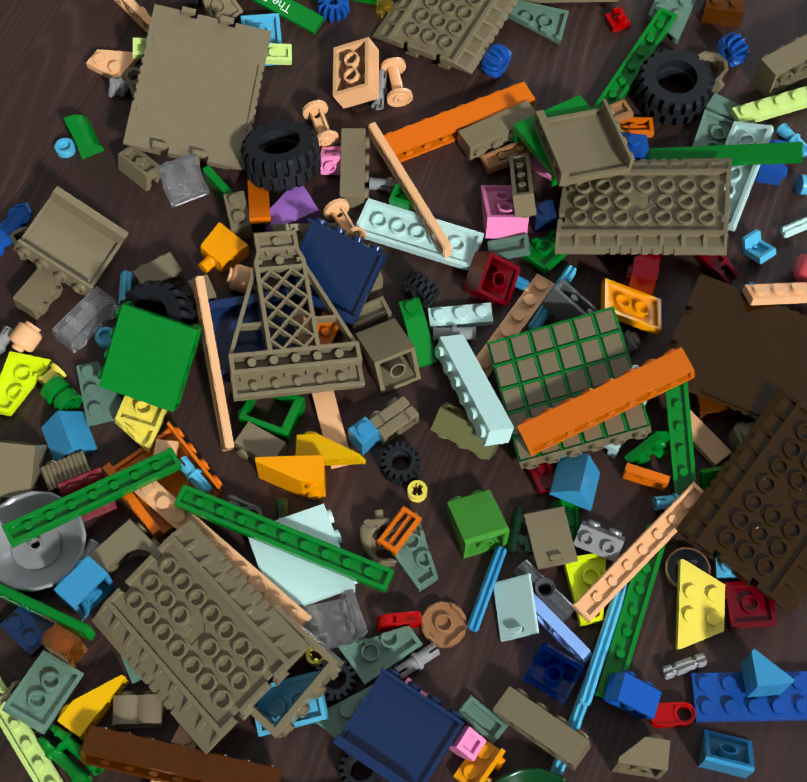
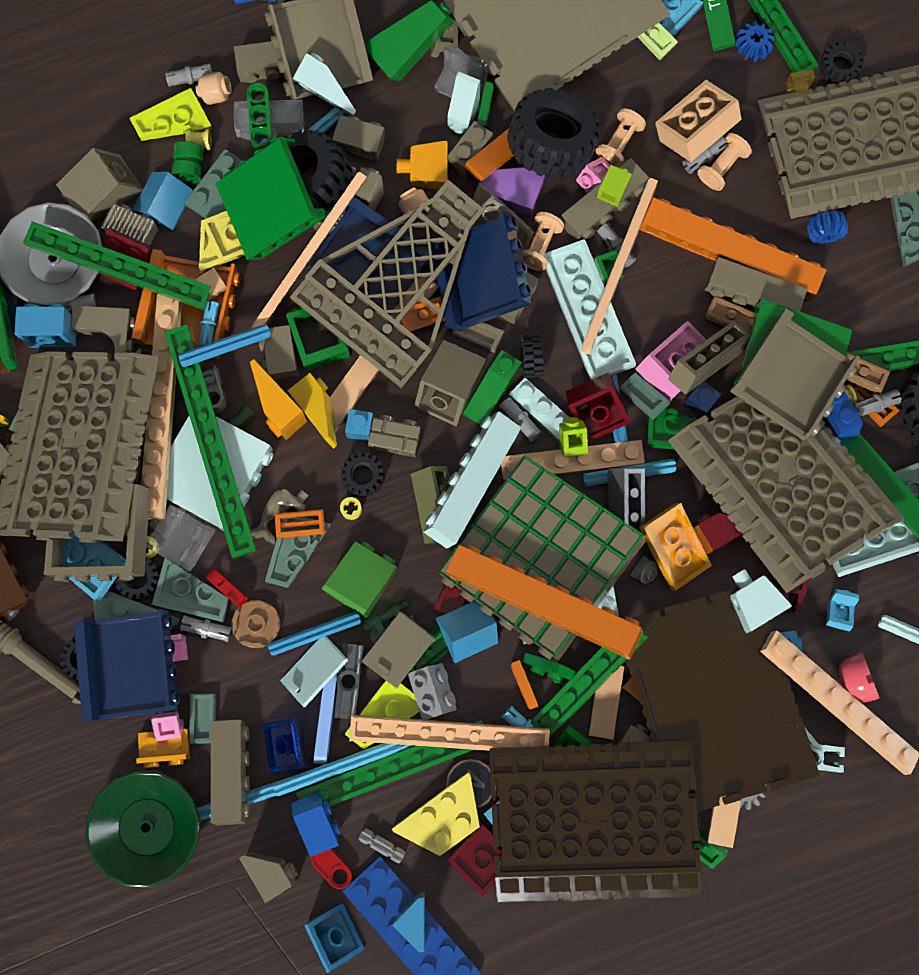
camera: 50 degrees right, 15 degrees up
(80, 311) = (258, 109): none -> green beam
(97, 263) = (320, 81): none -> light aqua slope
(125, 189) = (409, 39): none -> green slope
(205, 189) = (464, 103): none -> light aqua slope
(224, 471) = (224, 345): none -> dark azure axle
(353, 148) = (614, 185): none -> lime brick
(500, 308) = (573, 437): none -> lime brick
(638, 121) = (877, 403): none -> light grey axle
(715, 280) = (756, 601): none -> light aqua torso

